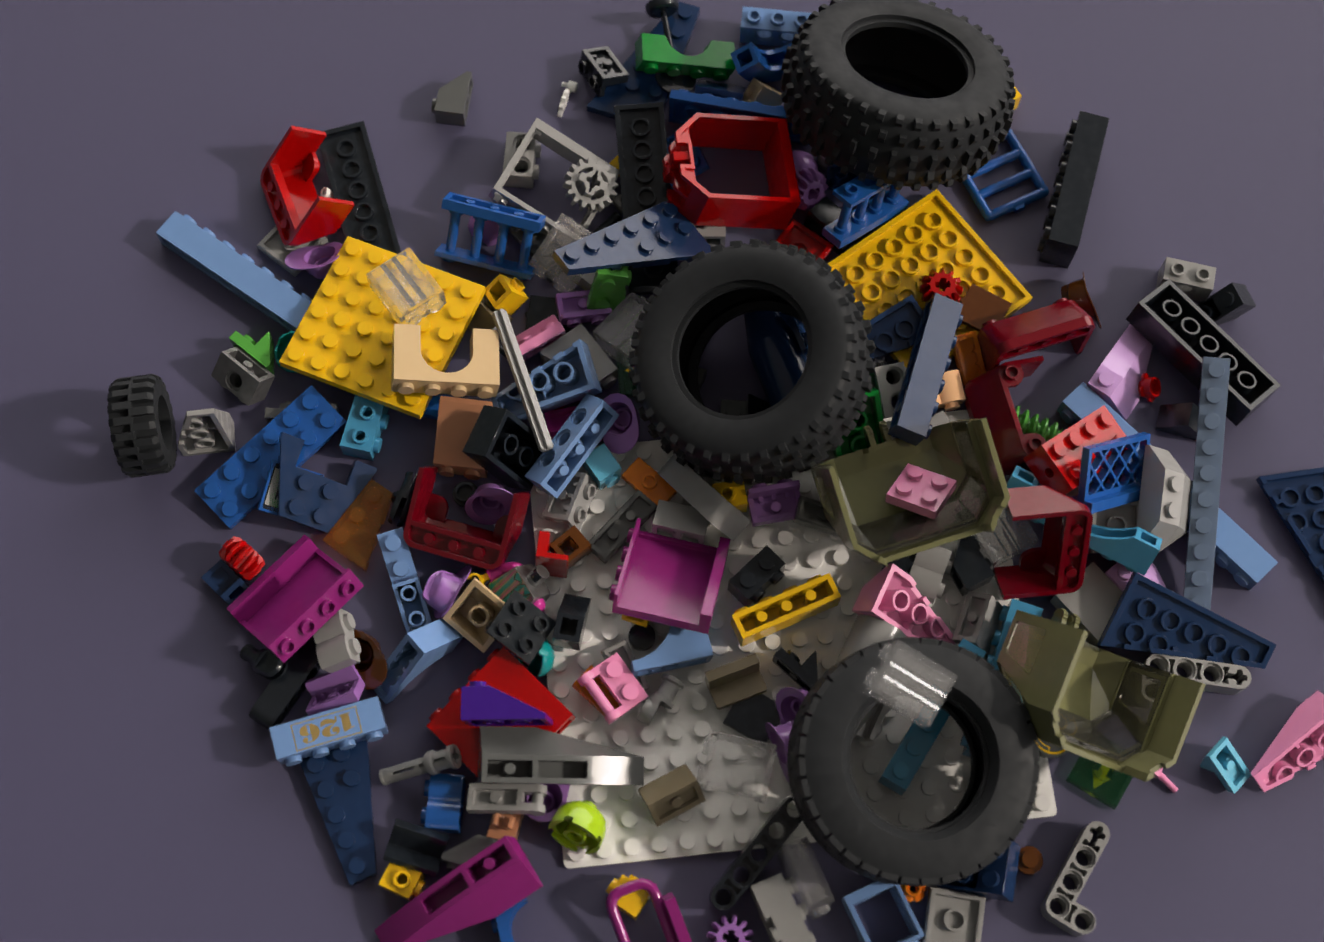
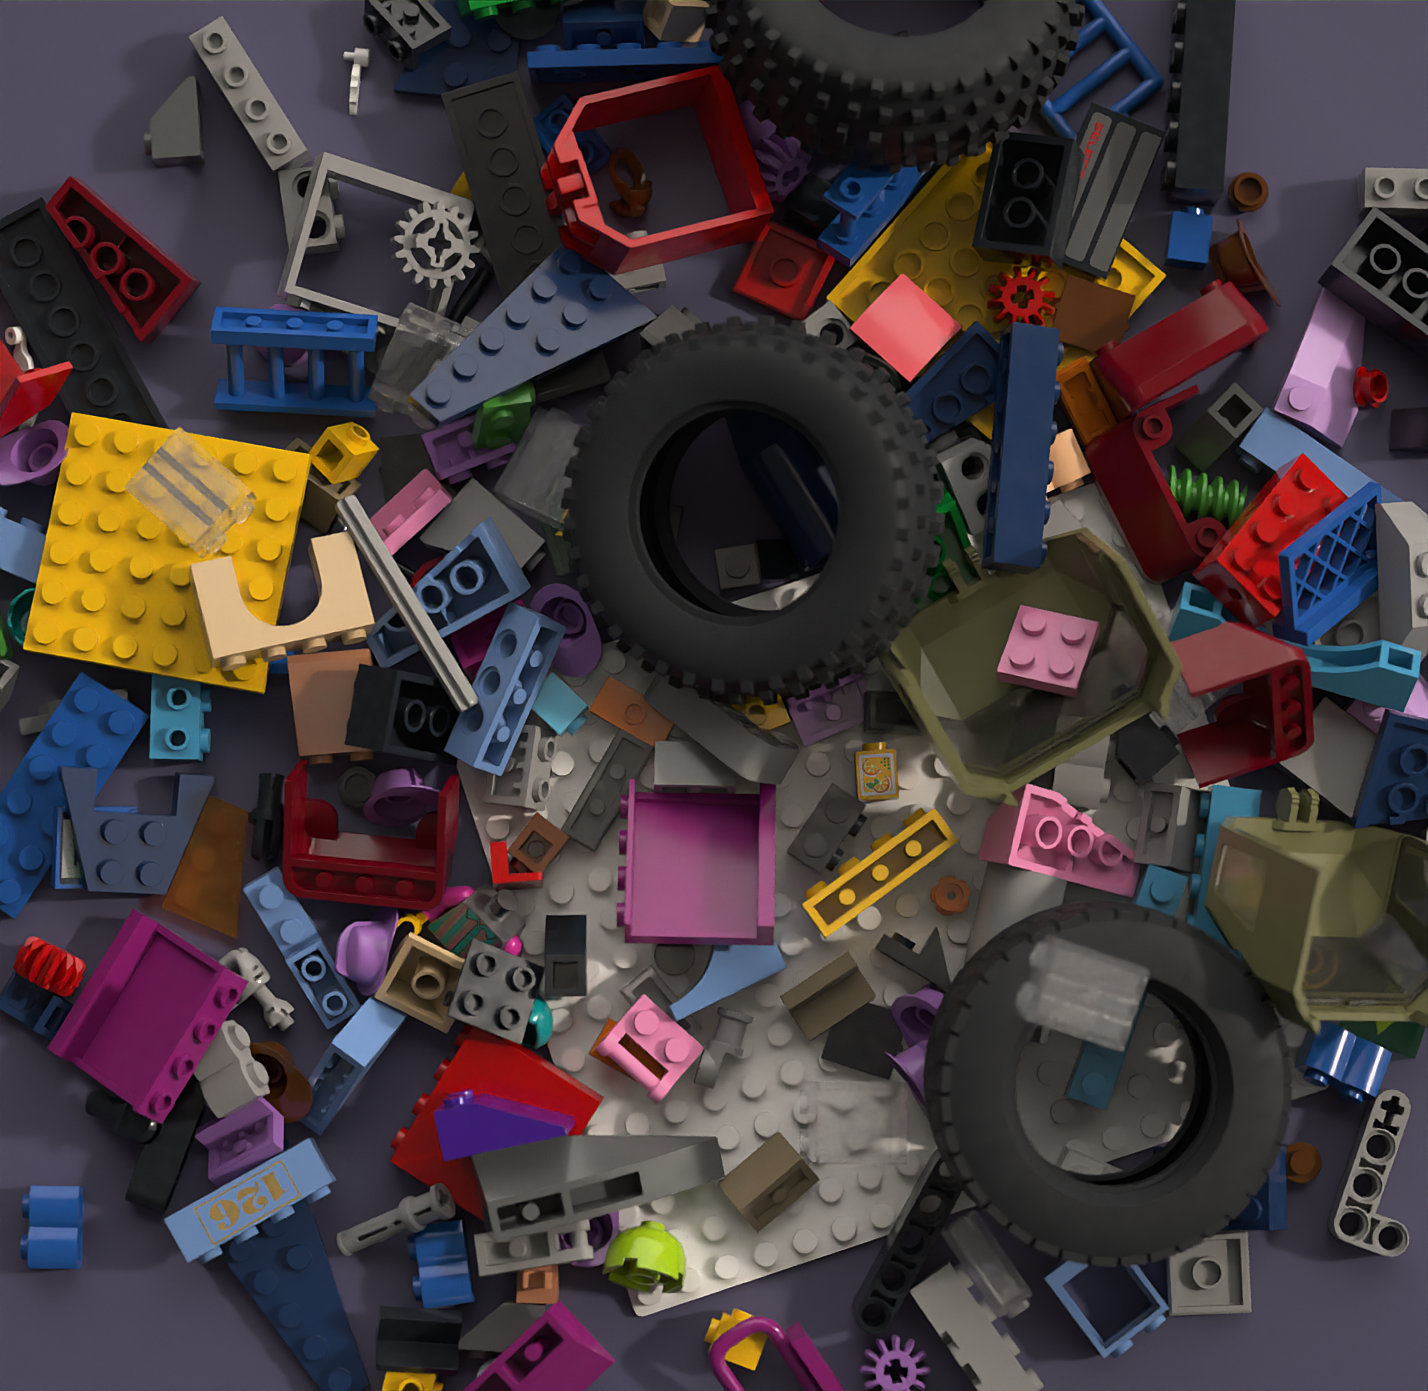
camera: 10 degrees left, 15 degrees up
(198, 724) = (54, 1227): none -> blue brick
(367, 598) = (274, 1009): none -> light grey piece
(406, 167) = (130, 266): none -> dark red wedge
(499, 89) = (249, 97): none -> light grey brick
(721, 187) = (636, 196): none -> reddish brown piece
(796, 549) = (876, 773): none -> yellow brick
(828, 629) = (943, 904): none -> orange plate
(871, 290) = (905, 328): none -> coral slope
(956, 230) = (1028, 200): none -> black brick
(999, 241) = (1110, 184): none -> dark grey tile
(1049, 280) = (1188, 239): none -> blue brick
(1051, 389) = (1218, 427): none -> dark grey slope
(1068, 797) = (1343, 1062): none -> blue brick
(1090, 262) = (1248, 192): none -> reddish brown plate

